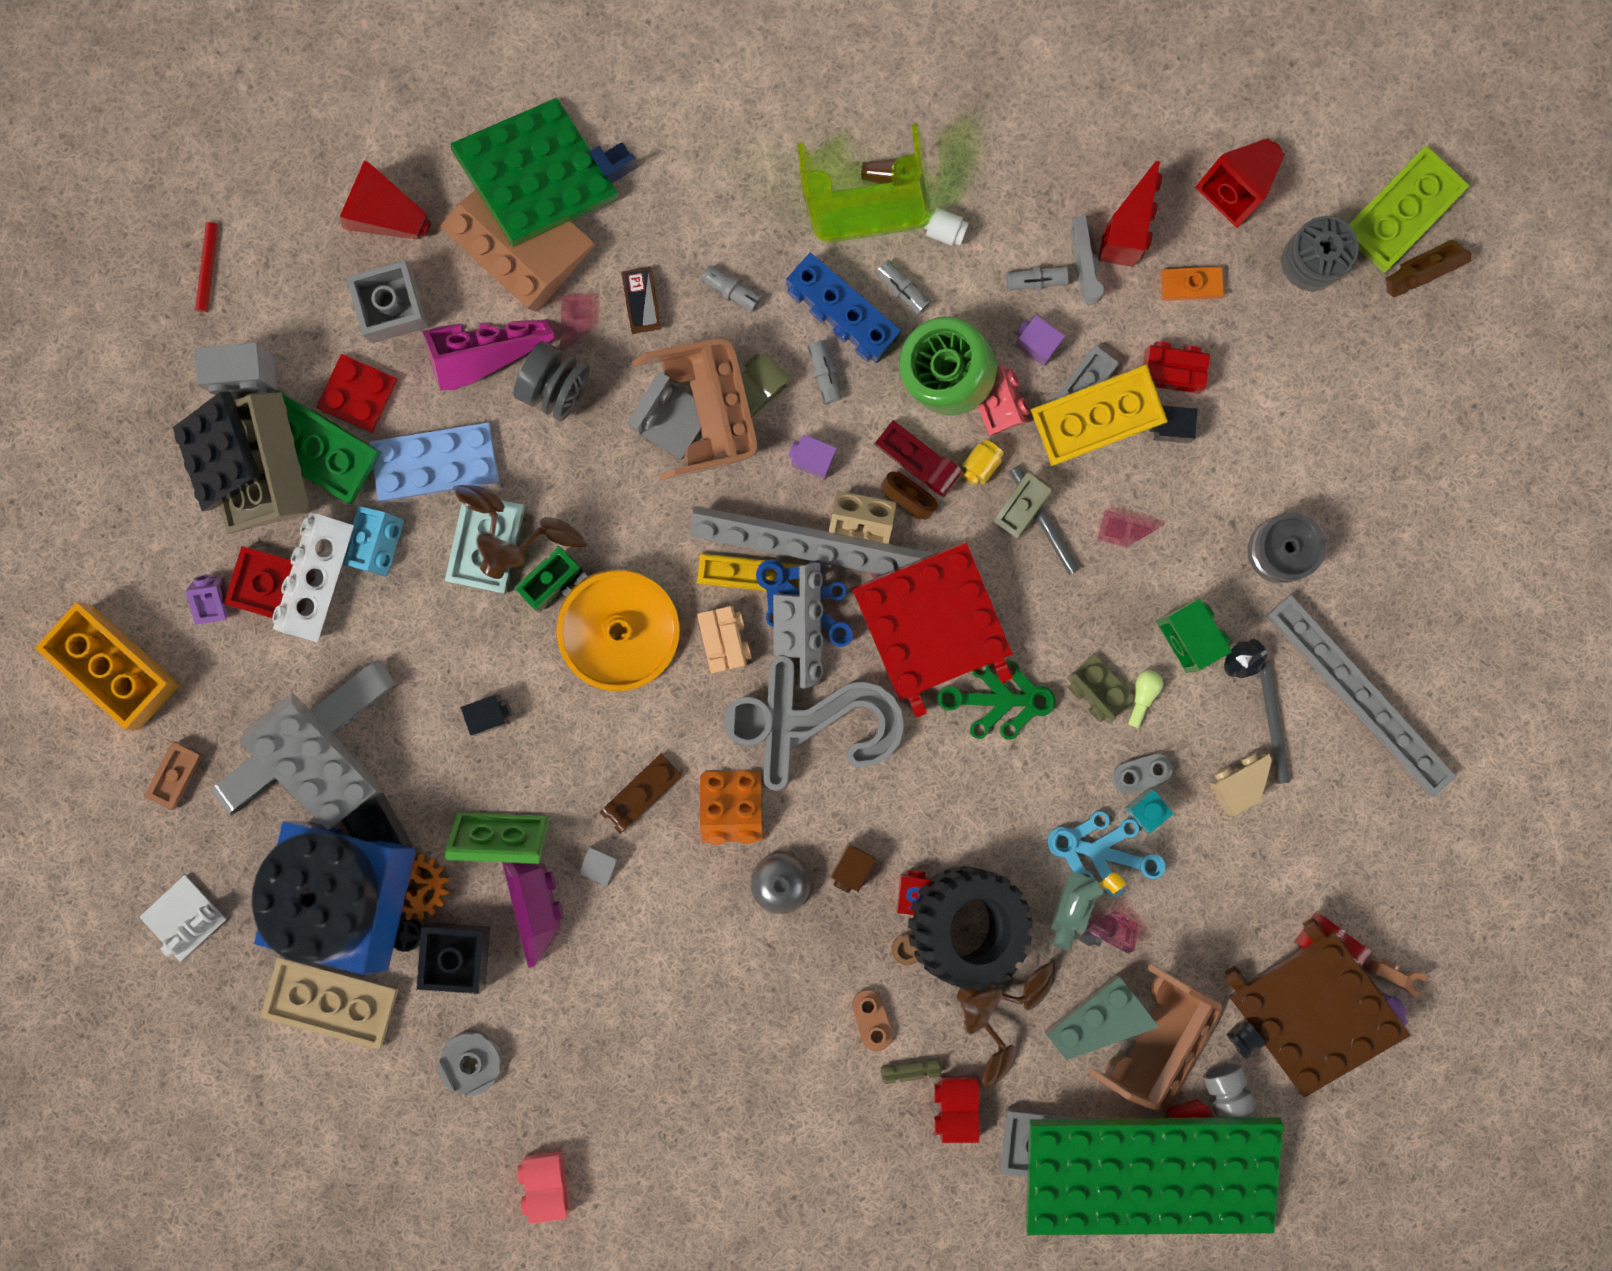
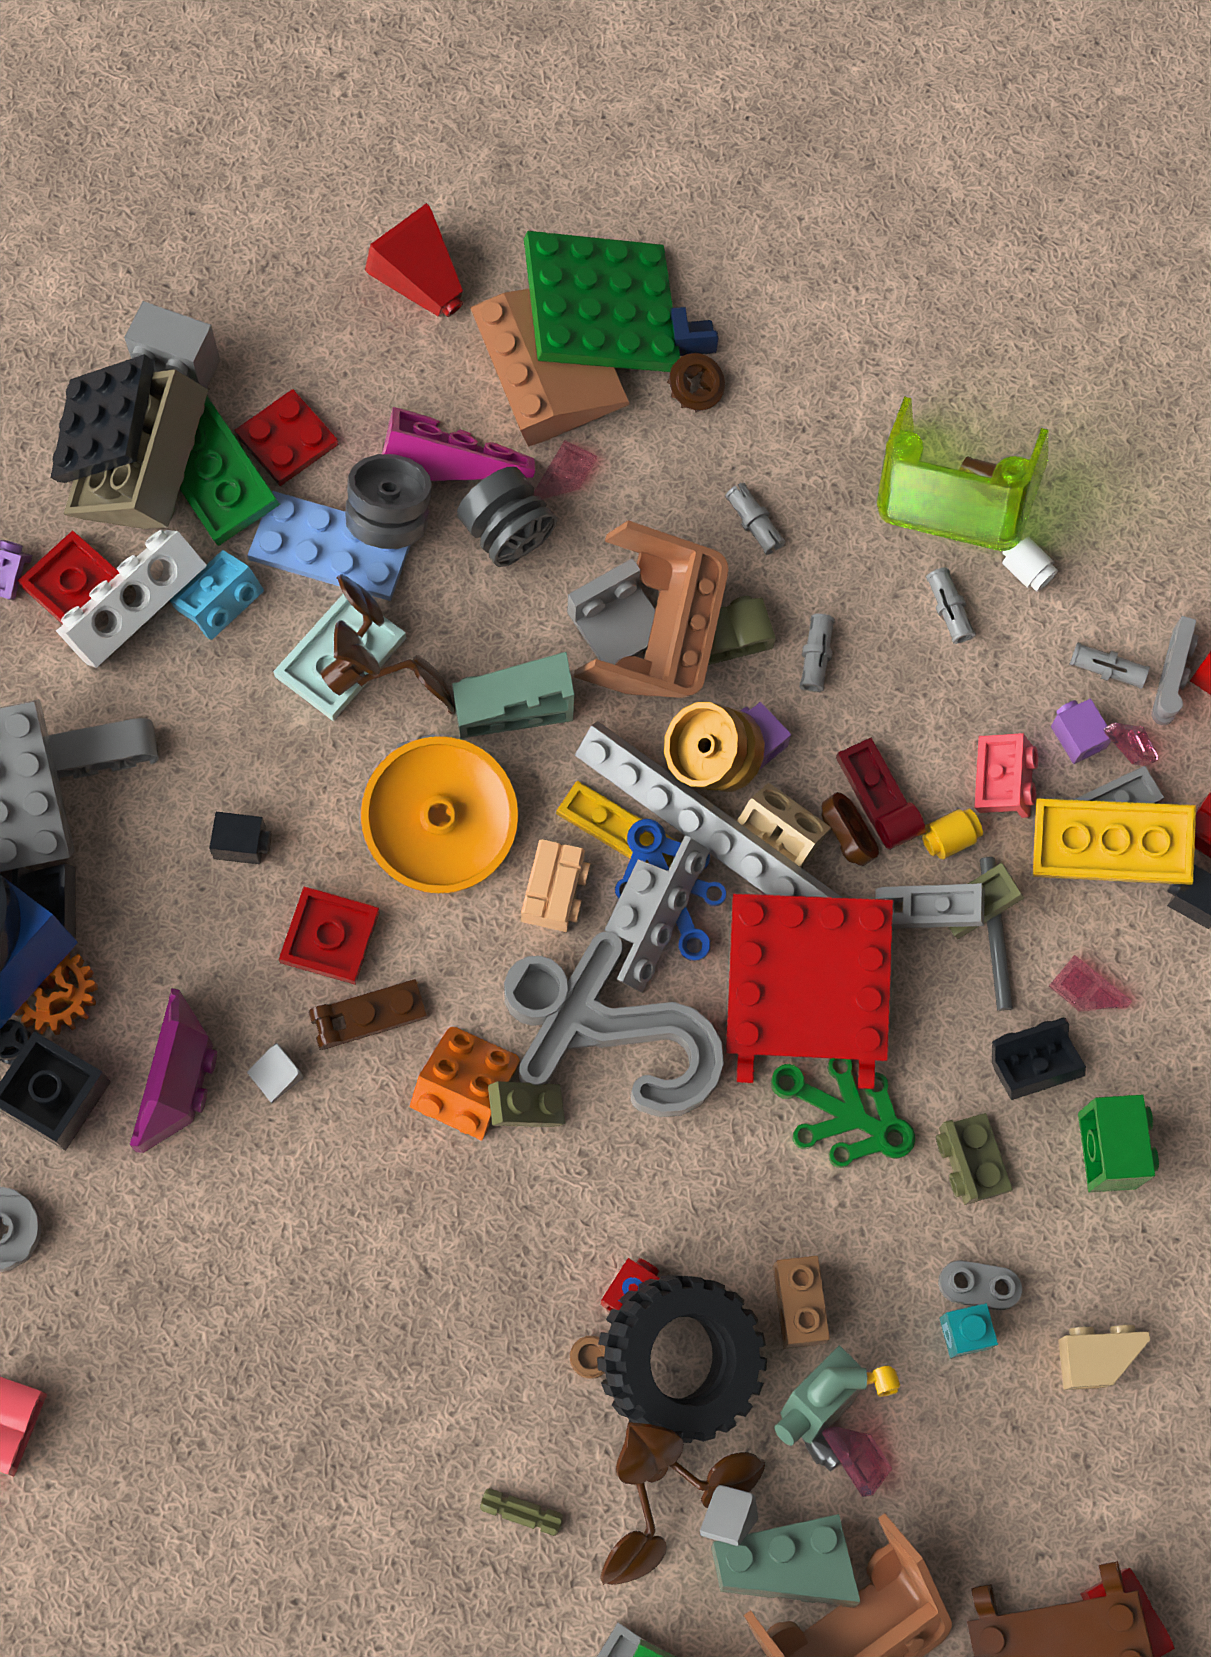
camera: 25 degrees right, 15 degrees down
(206, 267) = (199, 241): red bar -> none
(387, 302) = (372, 358): light grey brick -> none
(459, 413) = (388, 501): none -> flat silver wheel
(497, 838) = (176, 977): bright green tile -> none
(548, 579) = (390, 721): green brick -> none
(585, 752) = (329, 935): none -> red plate
(625, 517) = (515, 697): none -> sand green wedge
(641, 300) = (649, 485): slope -> none
(645, 191) = (711, 380): none -> reddish brown gear
(780, 883) = (478, 1200): flat silver cylinder -> none
(781, 806) = (526, 1104): none -> olive plate
(787, 486) = (714, 747): none -> pearl gold wheel
(843, 308) = (871, 595): blue brick -> none
(852, 869) = (572, 1223): reddish brown brick -> none
(872, 1020) = (505, 1422): nougat plate -> none
(932, 351) = (962, 704): bright green wheel -> none
(958, 1109) = (556, 1589): red brick -> none
(994, 524) = (936, 905): none -> light grey plate
(1029, 847) = (800, 1302): none -> medium nougat brick
(1049, 1013) = (729, 1515): none -> light grey slope
(1079, 333) = (1132, 743): none -> clear pink tile
(1099, 850) = (887, 1351): medium azure plant -> none
(1112, 599) = (1036, 1058): none -> black bracket
(1148, 687) = (1033, 1184): yellowish green piece -> none
(1245, 659) = (1168, 1207): black rock -> none
(1274, 723) = (1171, 1305): dark grey bar -> none

